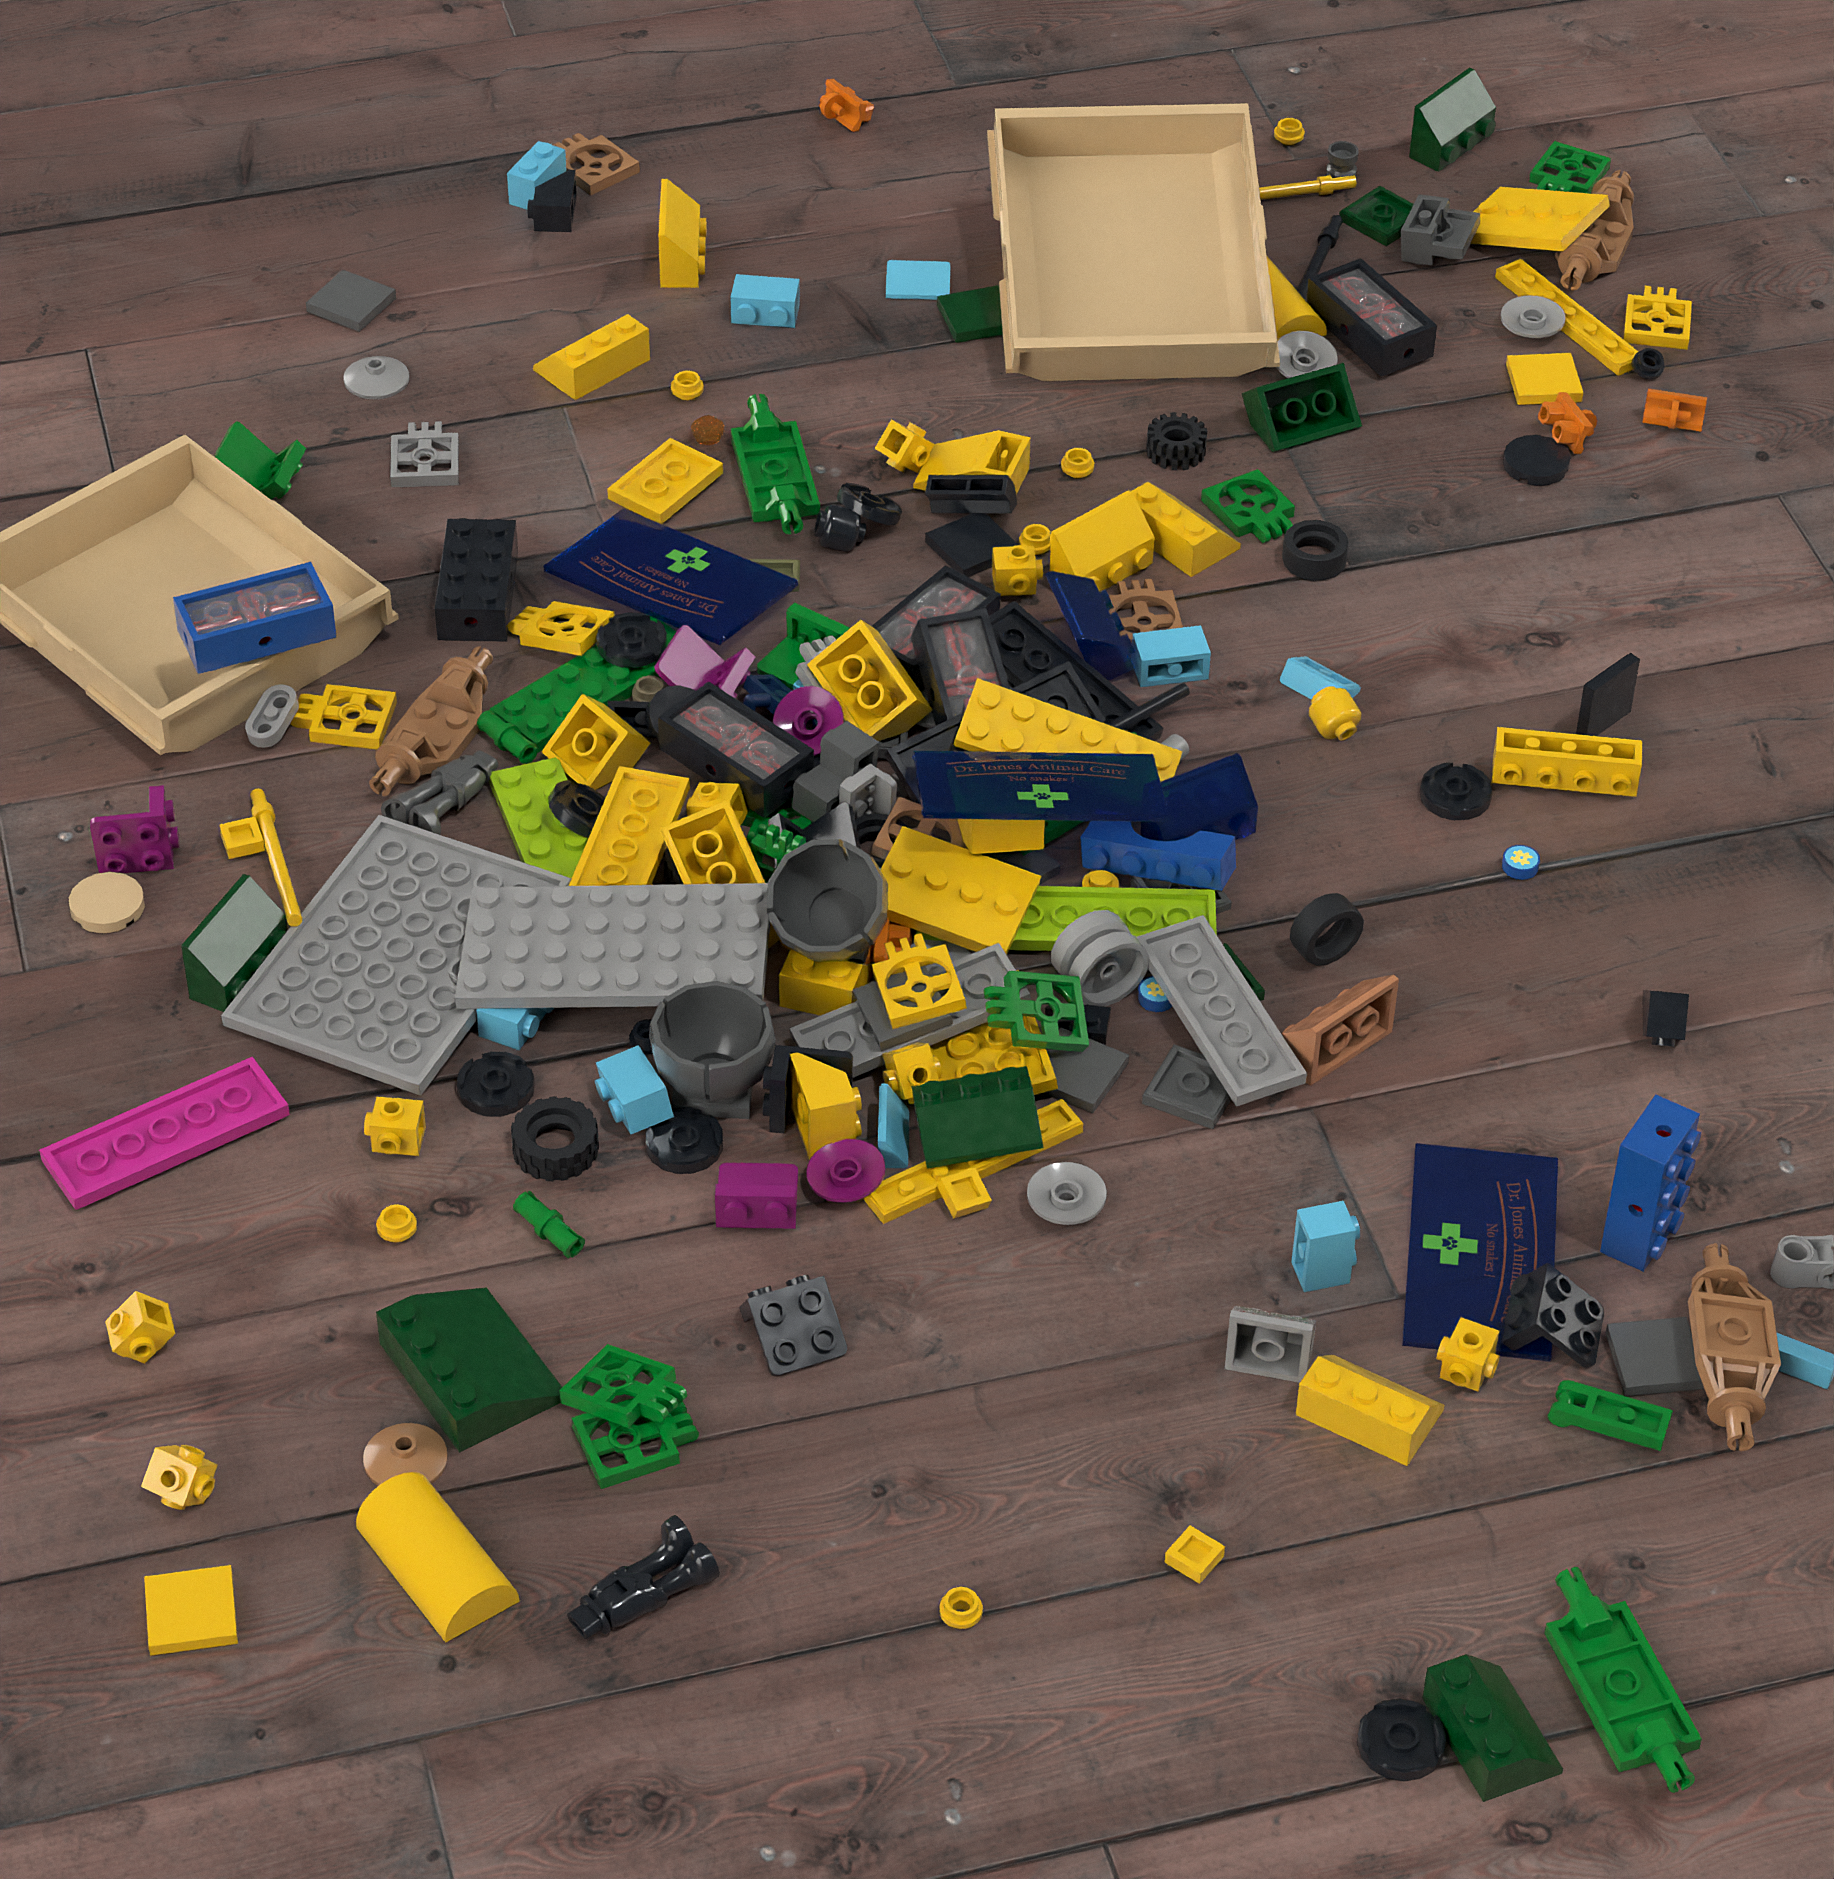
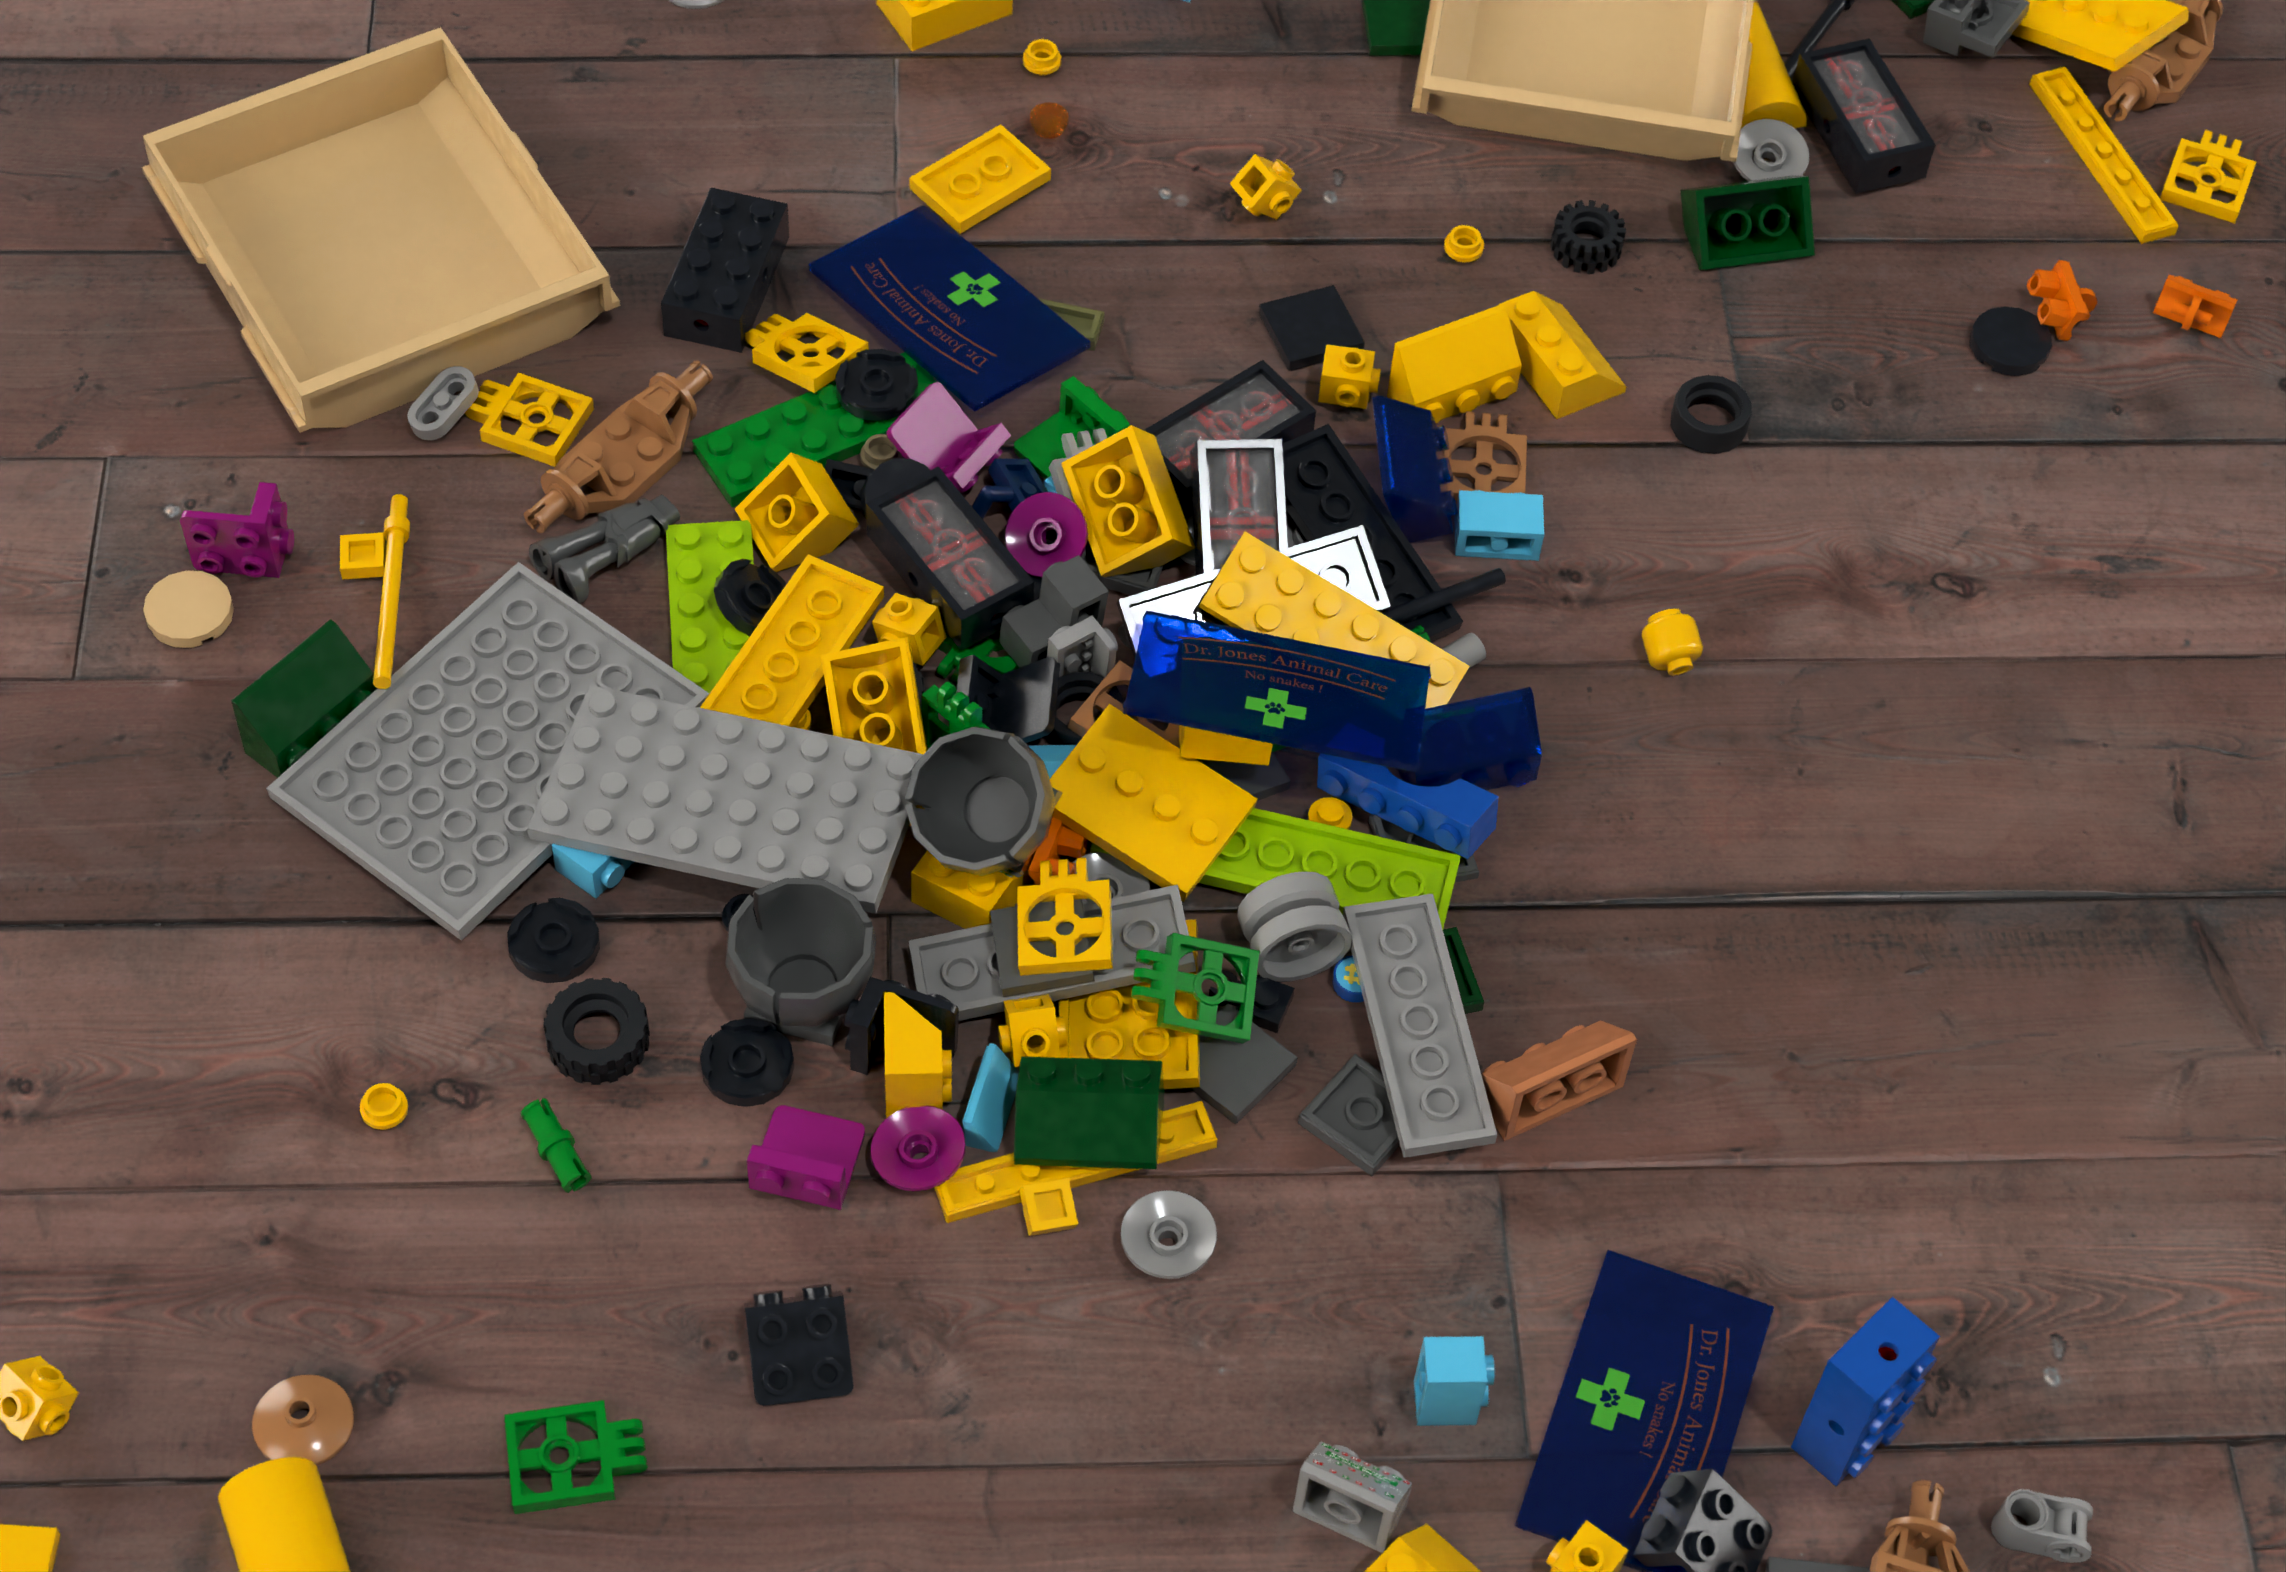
camera: 10 degrees right, 10 degrees up
(140, 1327) = (46, 1188): yellow brick -> none
(164, 1133) = (157, 929): dark pink plate -> none
(254, 617) = (435, 288): blue brick -> none
(259, 464) = (520, 74): green bracket -> none
(396, 1126) = (417, 979): yellow brick -> none
(423, 441) = (723, 73): light grey piece -> none
(466, 1363) = (411, 1312): dark green slope -> none
(507, 736) = (701, 482): green pin -> none
(614, 1364) = (597, 1409): green piece -> none
(633, 1090) = (701, 988): medium azure brick -> none
(774, 468) = (1109, 186): green plate -> none
(839, 528) = (1161, 279): black head -> none
(860, 500) = (1201, 257): black tile -> none
(971, 493) = (1324, 266): black piece -> none
(979, 455) = (1343, 231): yellow slope -> none
(1037, 536) = (1384, 334): yellow plate -> none
(1252, 518) = (1659, 361): green piece -> none
(1310, 677) = (1664, 587): medium azure slope -> none
(1317, 917) = (1577, 939): black tyre -> none
(1456, 791) = (1790, 773): black tile -> none
(1520, 862) = (1841, 886): tile -> none
(1532, 316) = (2057, 148): light grey dish -> none
(1542, 377) = (2050, 232): yellow tile -> none
(1567, 761) = (1932, 766): yellow brick -> none
(1608, 696) = (2004, 689): black tile -> none
(1648, 363) = (2186, 230): black plate -> none
(1664, 1016) = (1956, 1139): black slope -> none

